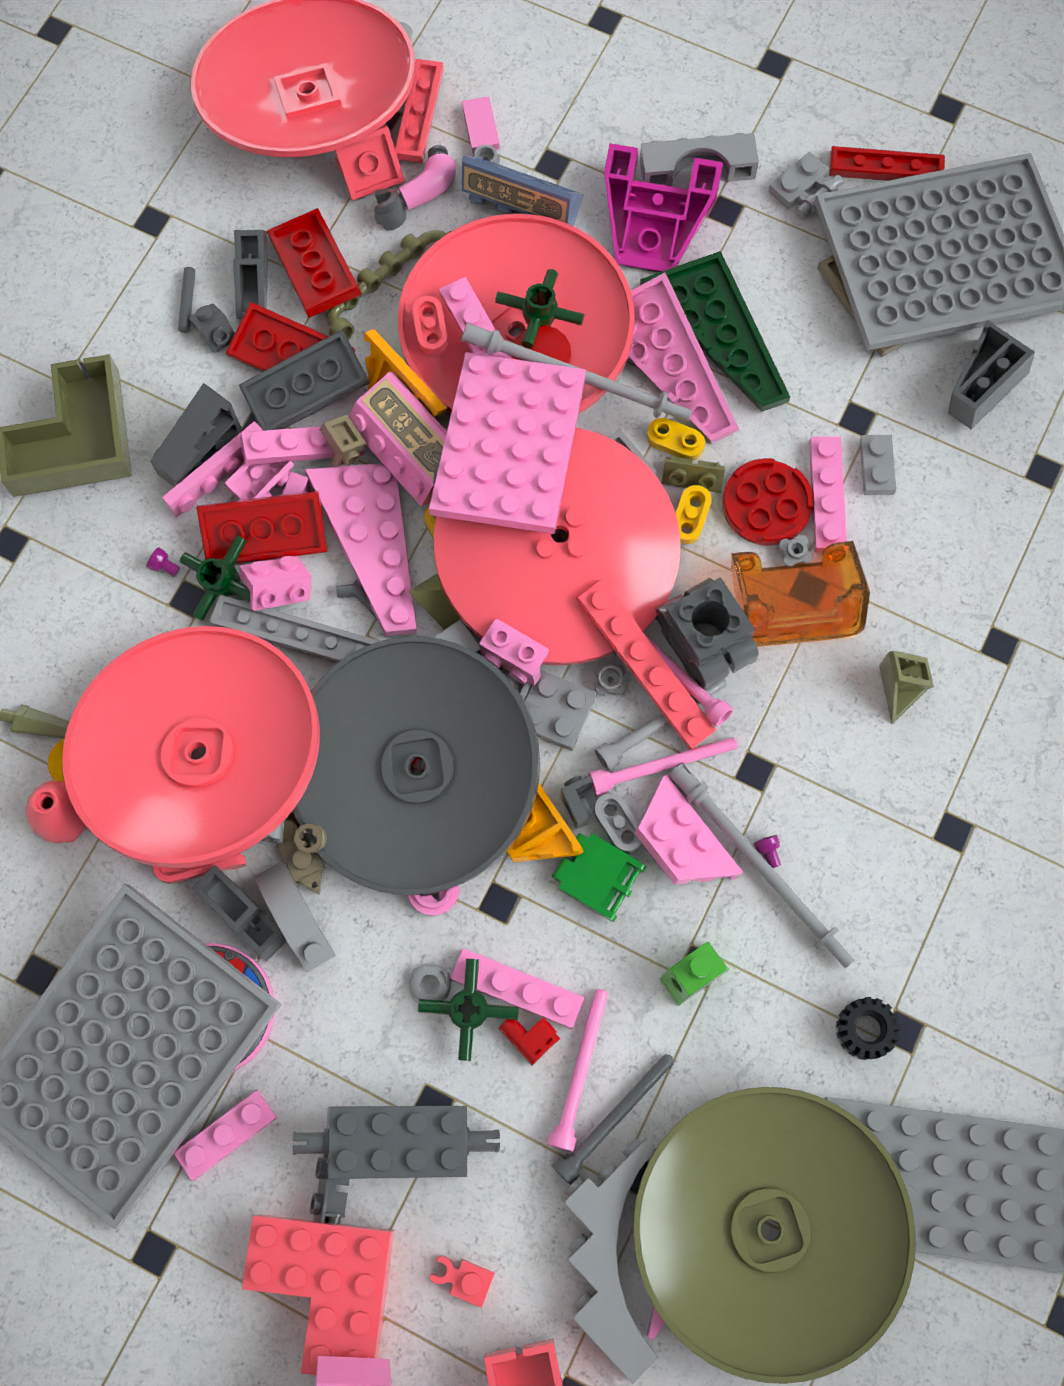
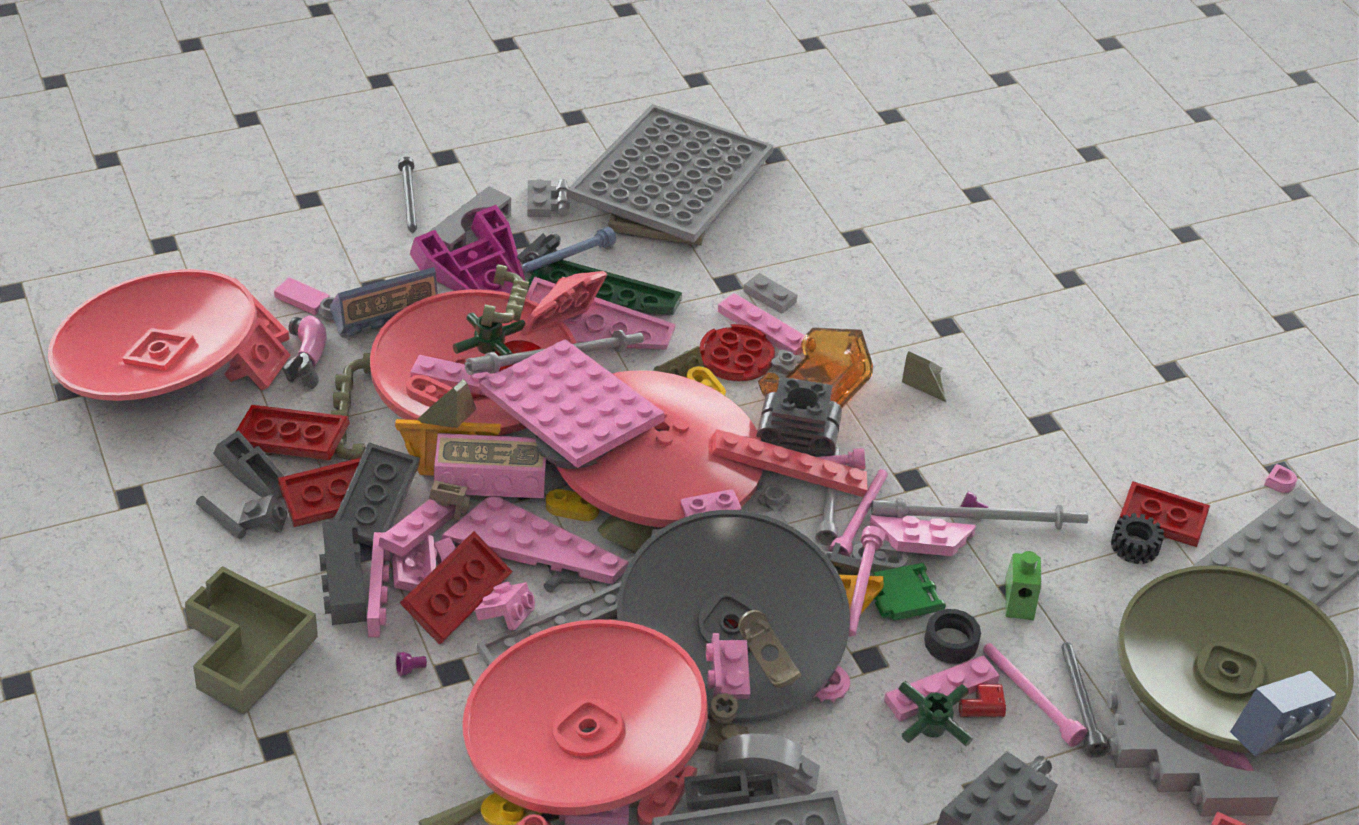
camera: 55 degrees left, 30 degrees down
(208, 570) = (467, 643): dark green bar -> none
(347, 809) = (729, 667): none -> bright pink bracket
(386, 852) = (759, 635): none -> dark tan piece
(417, 359) = (451, 408): none -> olive slope
(430, 969) = (886, 740): light grey piece -> none
(596, 290) = (516, 299): none -> olive bar
(599, 936) = (955, 620): none -> black tyre
(613, 807) = (872, 540): none -> bright pink piece
(651, 323) = (566, 300): none -> coral wedge
(674, 440) = (643, 359): yellow plate -> none
(722, 1335) = (1281, 711): none -> sand blue wedge
(723, 47) = (406, 165): none -> bar
(730, 241) = (540, 247): none -> dark grey hinge
(797, 275) = (603, 238): none -> sand blue piece
(881, 164) = (575, 161): red tile -> none
(934, 1029) = (1178, 516): none -> red tile
(989, 375) = (770, 208): dark grey wedge -> none

